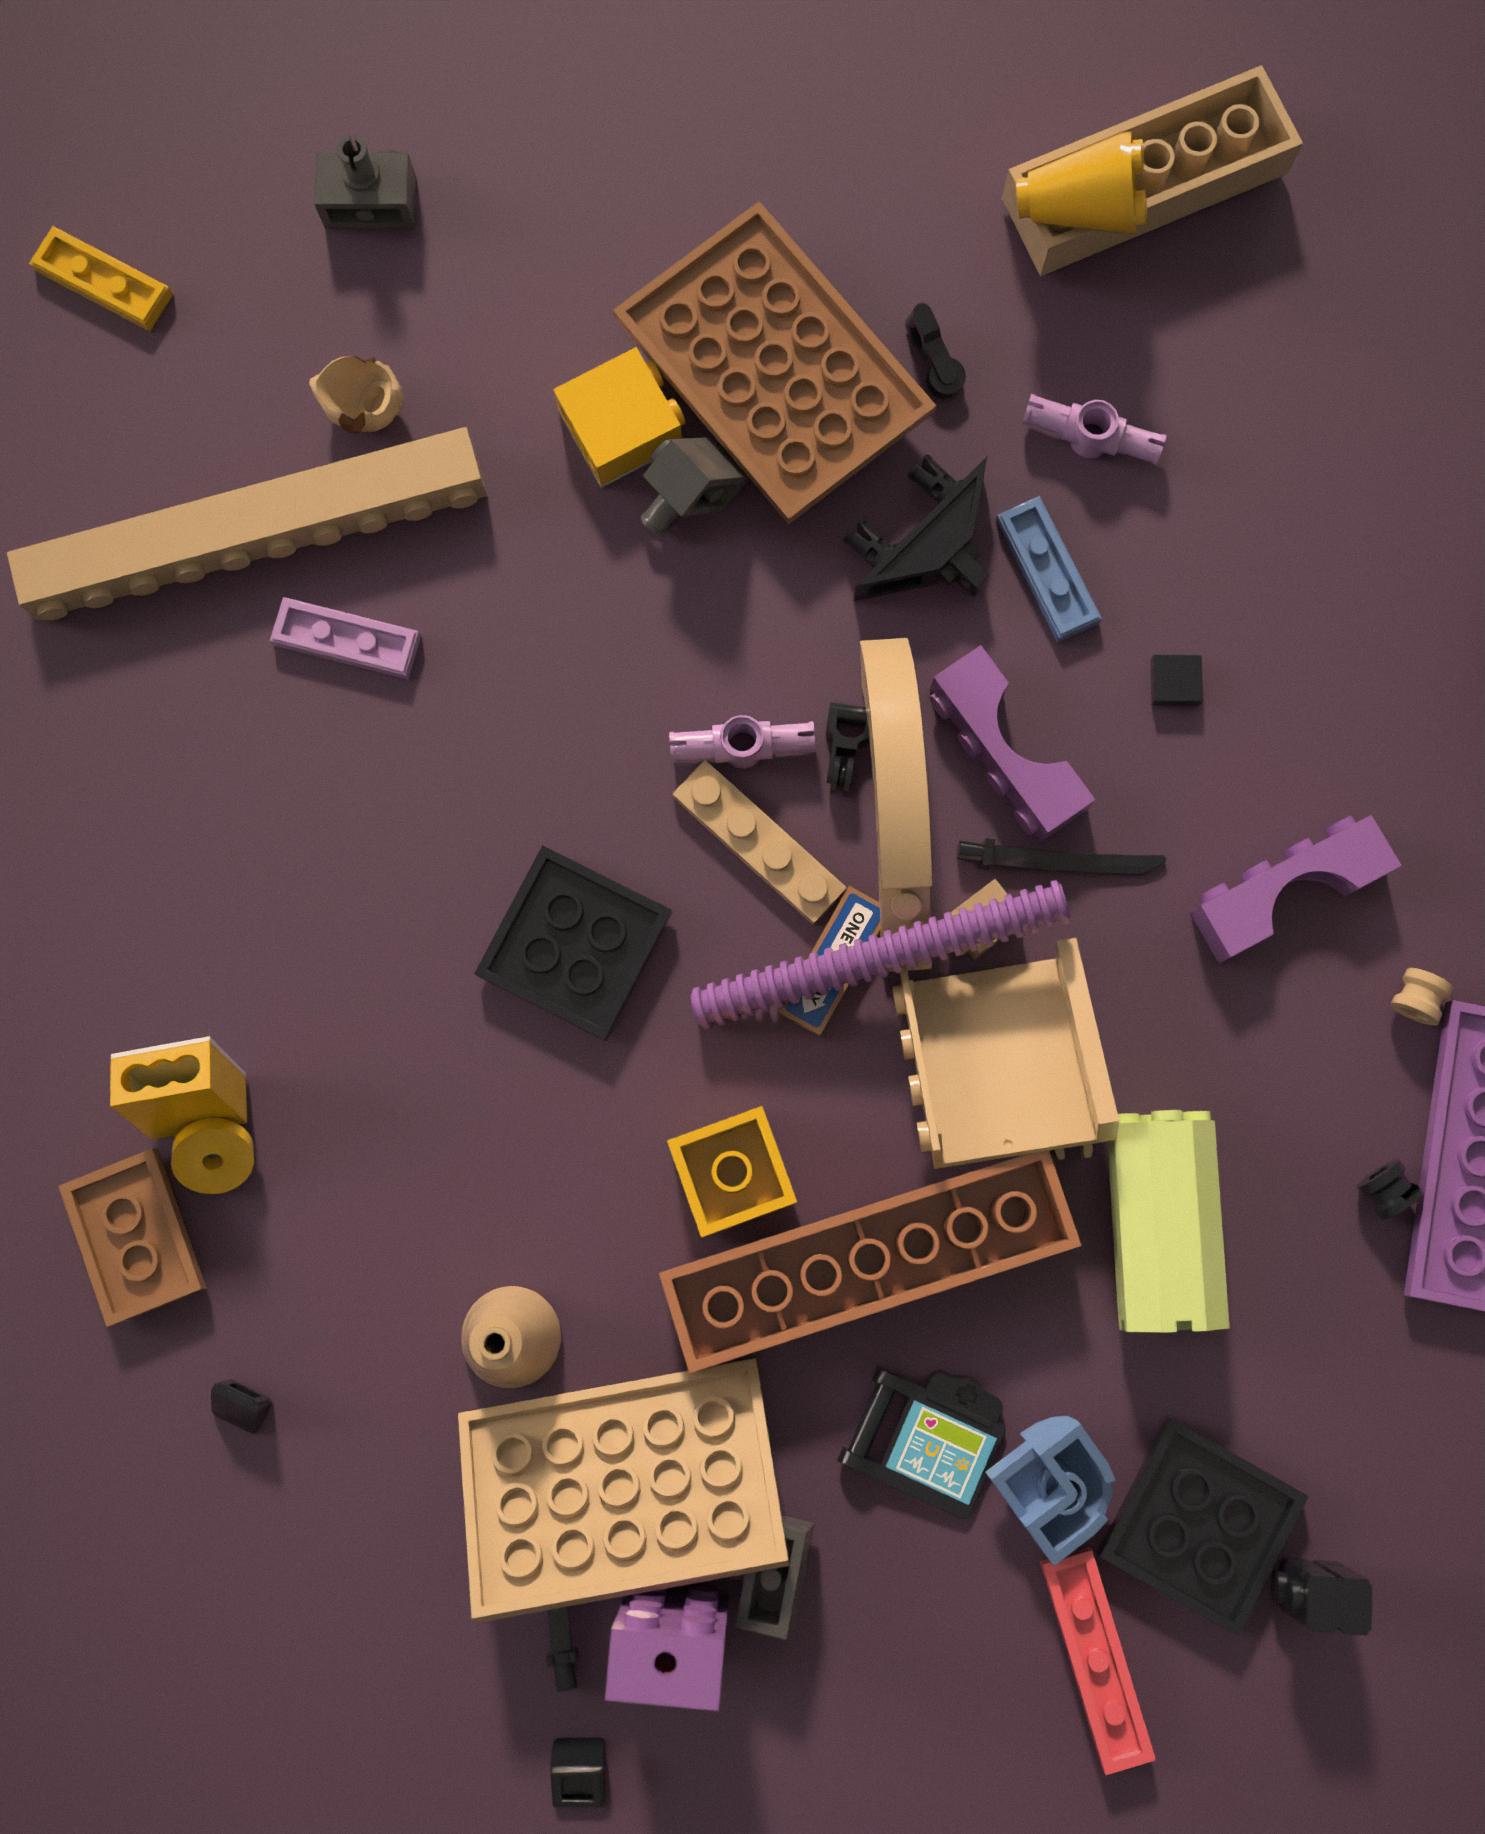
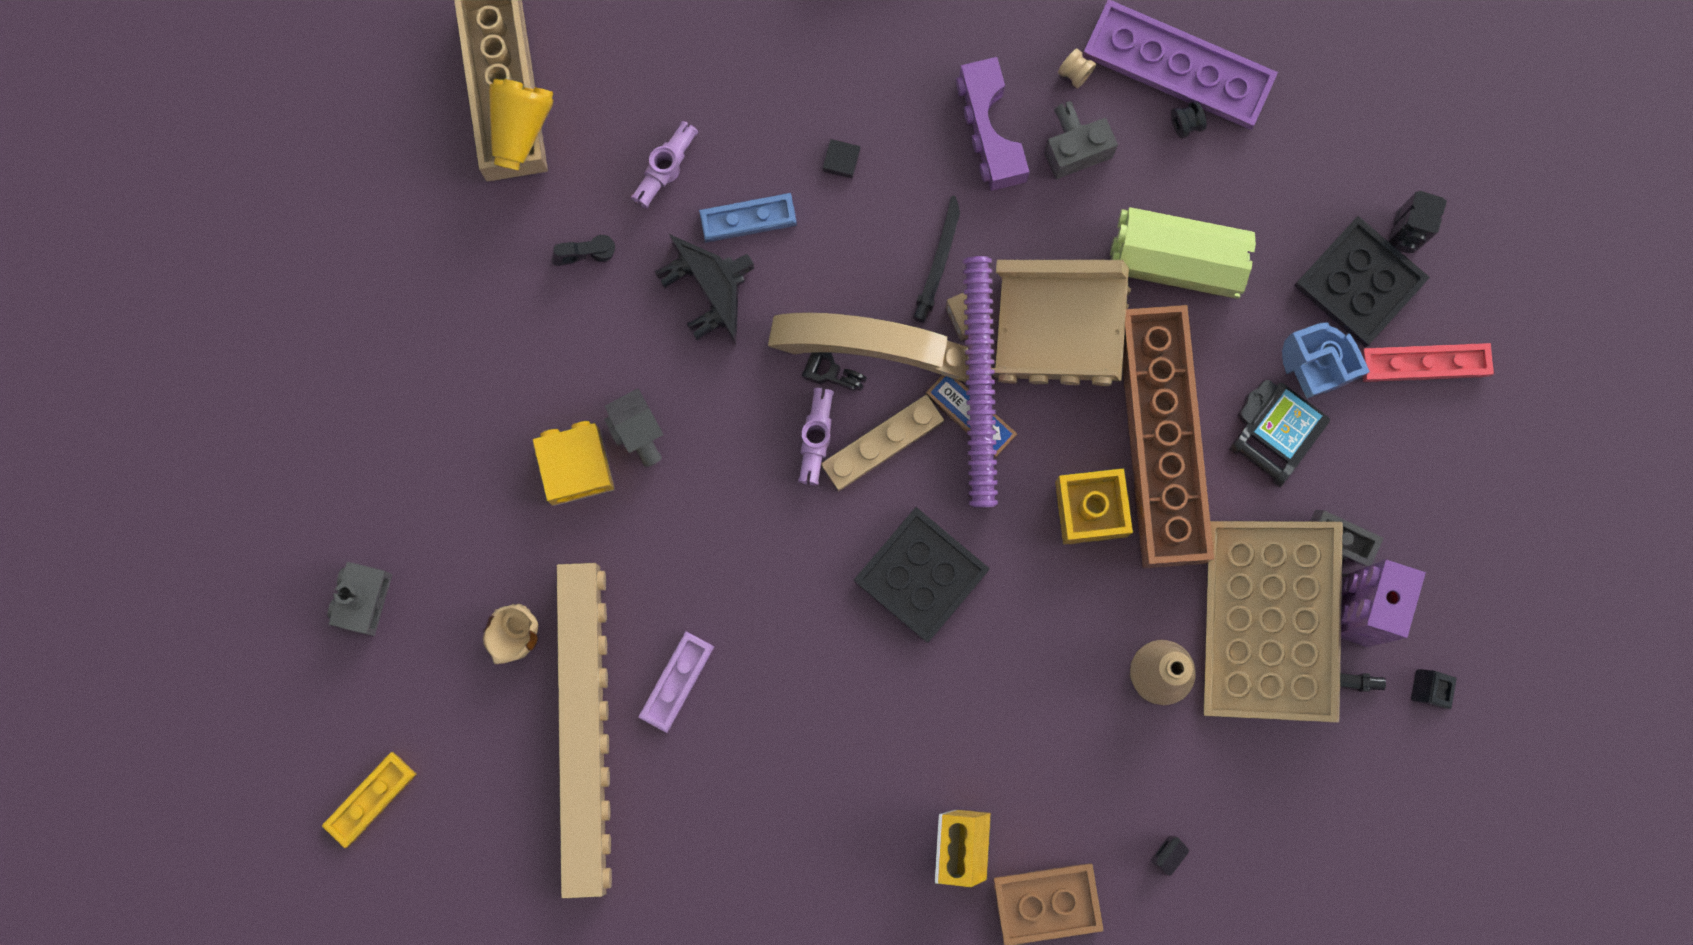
camera: 80 degrees left, 0 degrees up
(208, 1137) = (1008, 838): yellow piece -> none
(774, 362) = (565, 353): medium nougat piece -> none
(1043, 794) = (823, 285): medium lavender arch -> none
(1299, 1028) = (1079, 144): none -> dark grey brick

